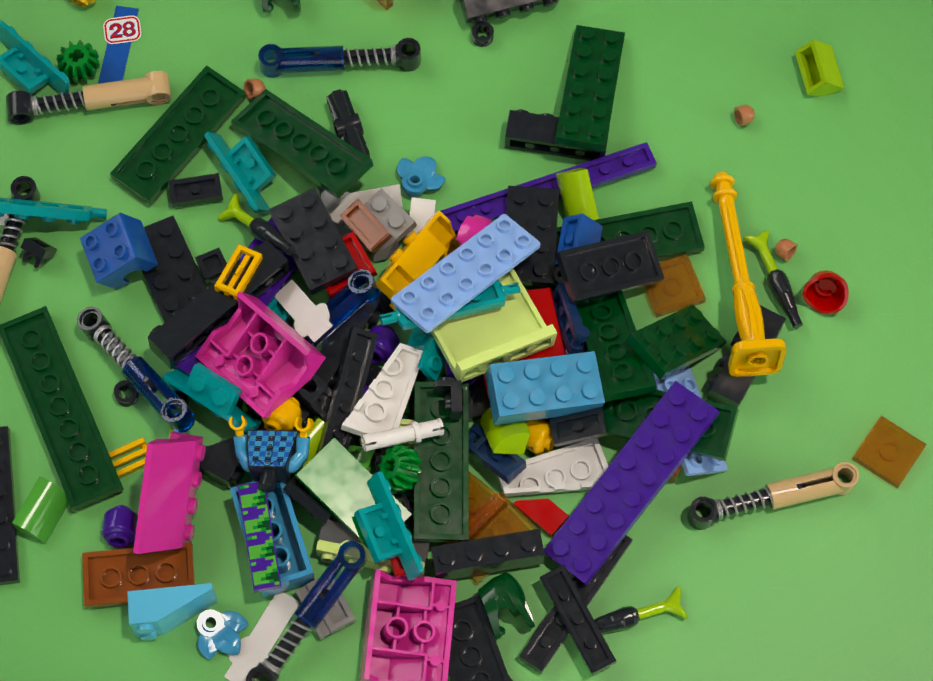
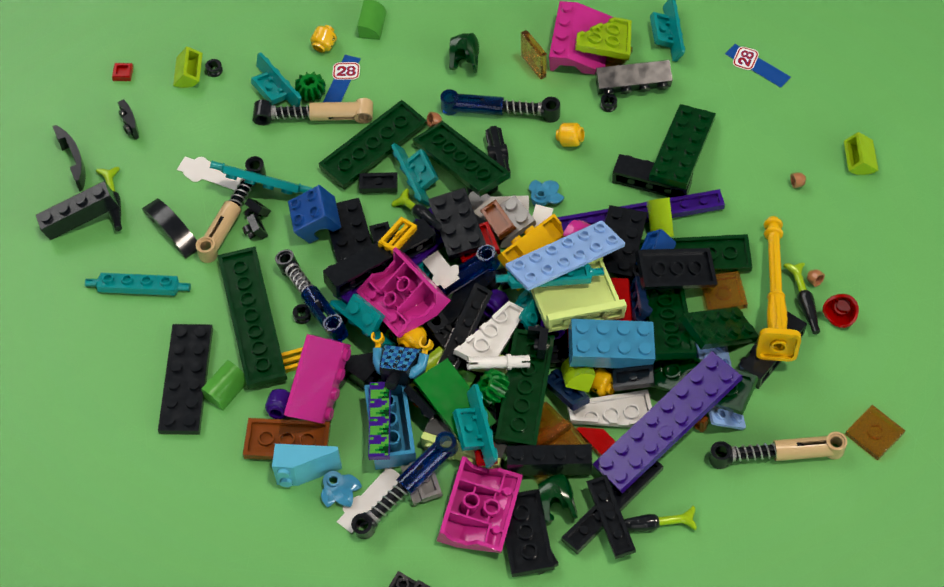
camera: 15 degrees right, 10 degrees down
(40, 278) = (254, 228): none -> black tile
(440, 88) = (570, 134): none -> yellow head

